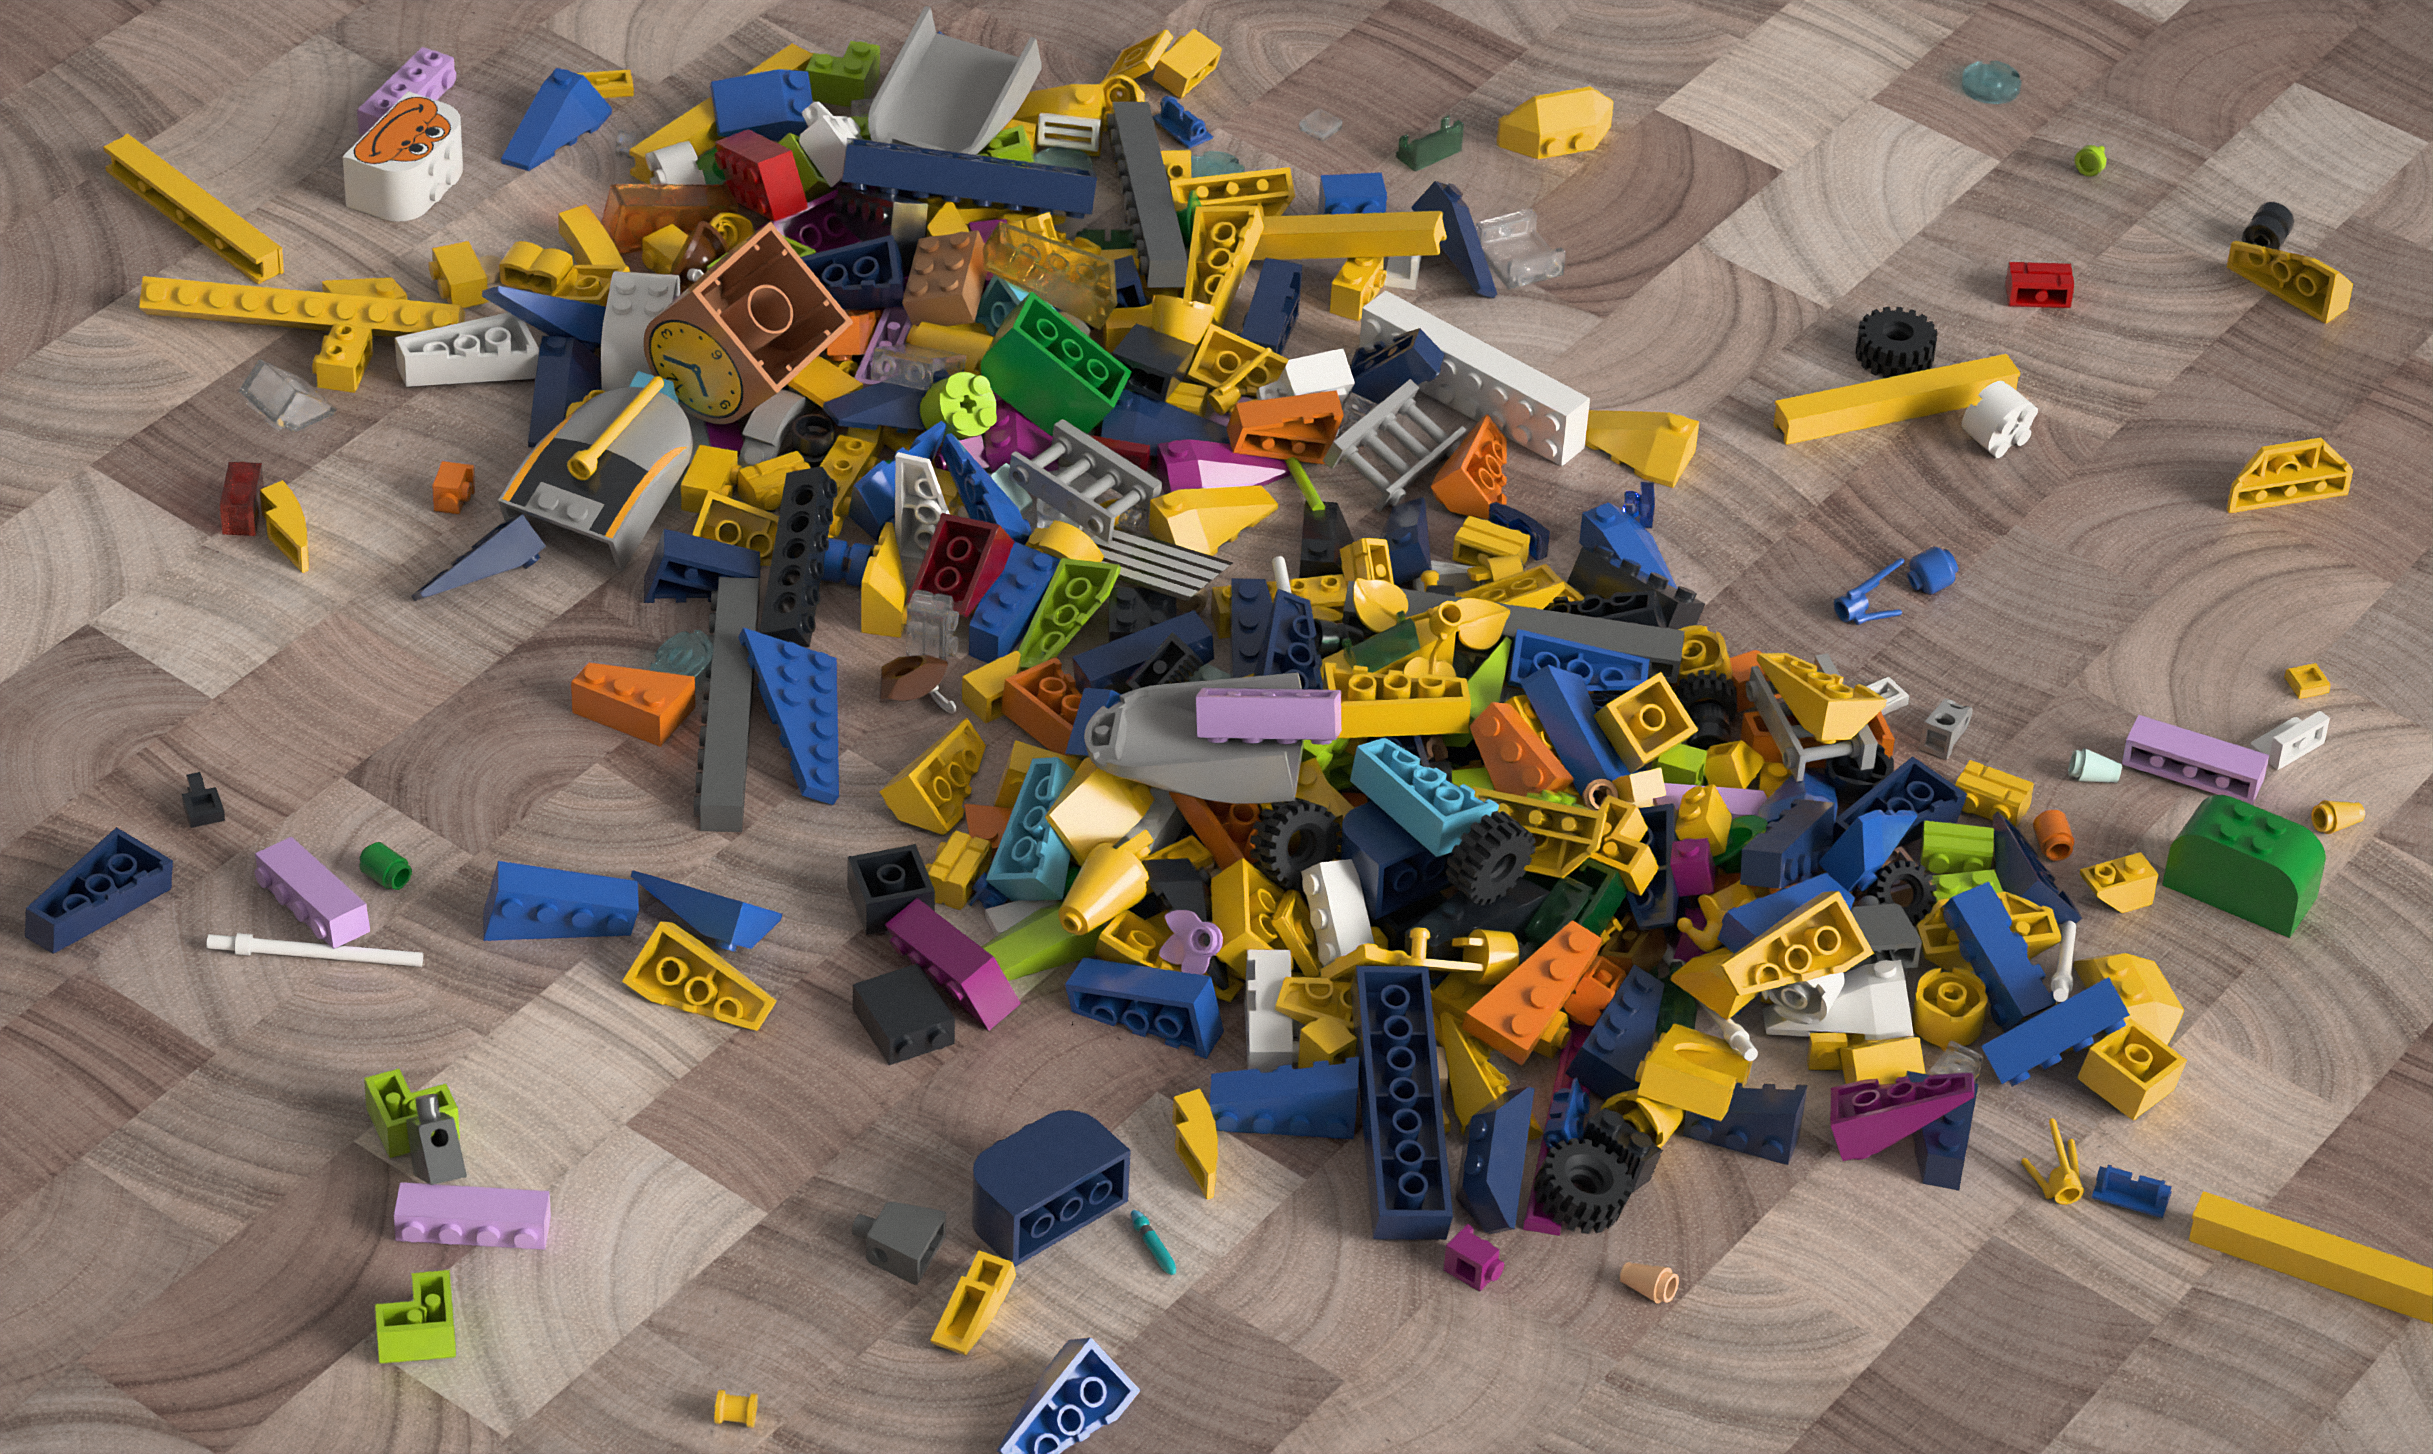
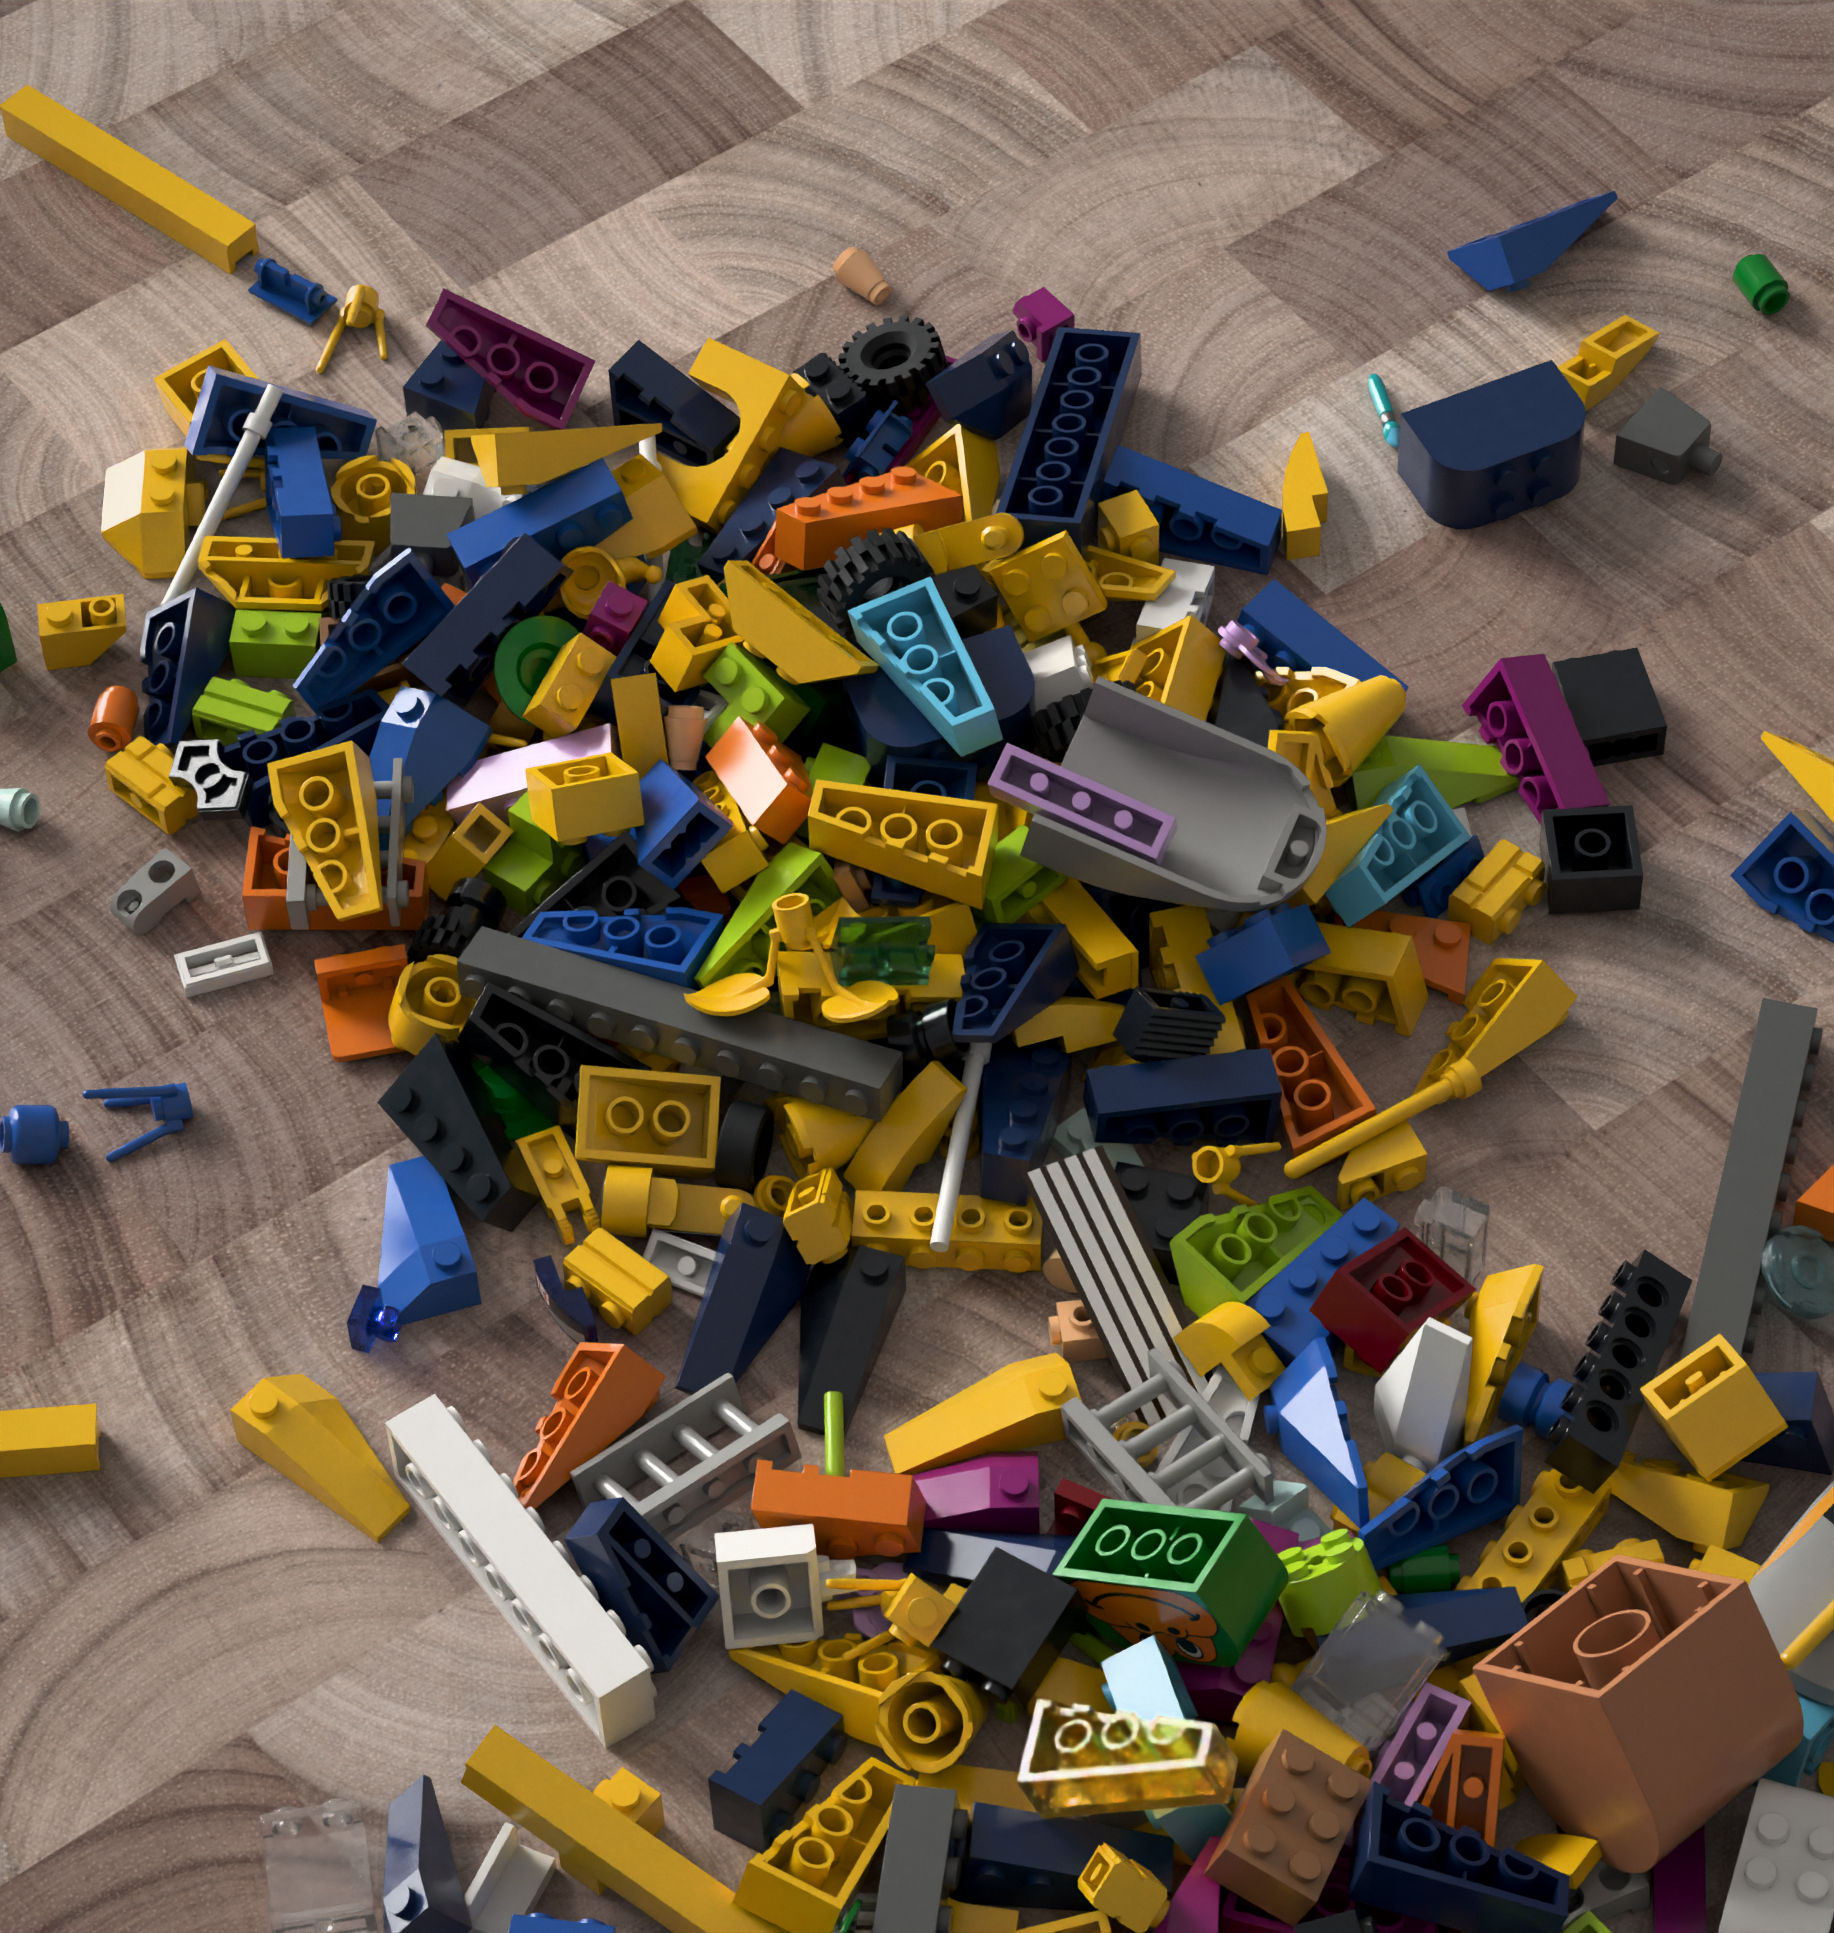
camera: 160 degrees left, 10 degrees up
(733, 526) = (1713, 1408): none -> yellow slope
(802, 700) = (1652, 1167): blue wing -> none
(847, 1398) = (1761, 284): none -> green brick
(912, 678) = (1501, 1176): reddish brown hat -> none
(951, 714) = (1458, 1081): none -> yellow piece
(1101, 626) = (1222, 1166): none -> yellow plant
(1209, 363) = (918, 1612): none -> yellow brick
(1952, 770) = (220, 791): none -> black tile

